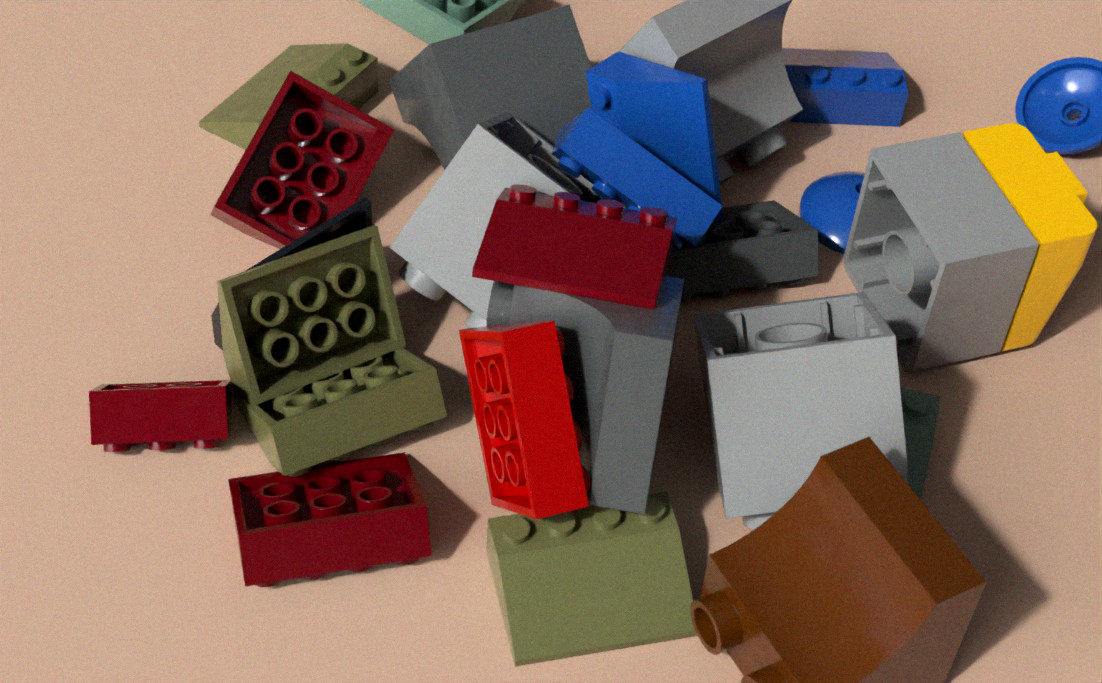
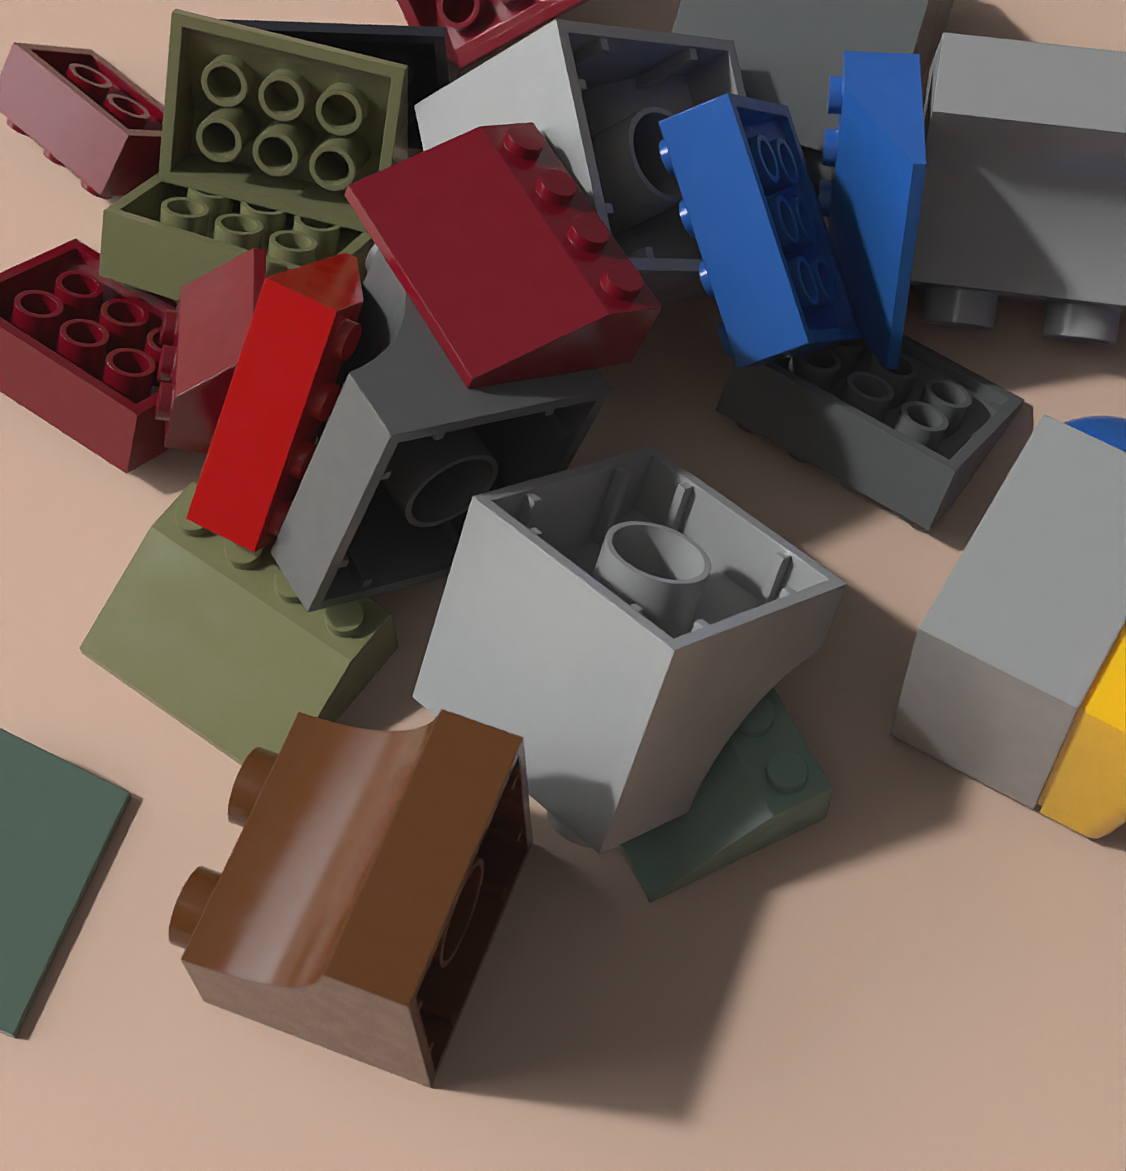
camera: 55 degrees right, 15 degrees up
(433, 440) = (203, 348): none -> dark red slope

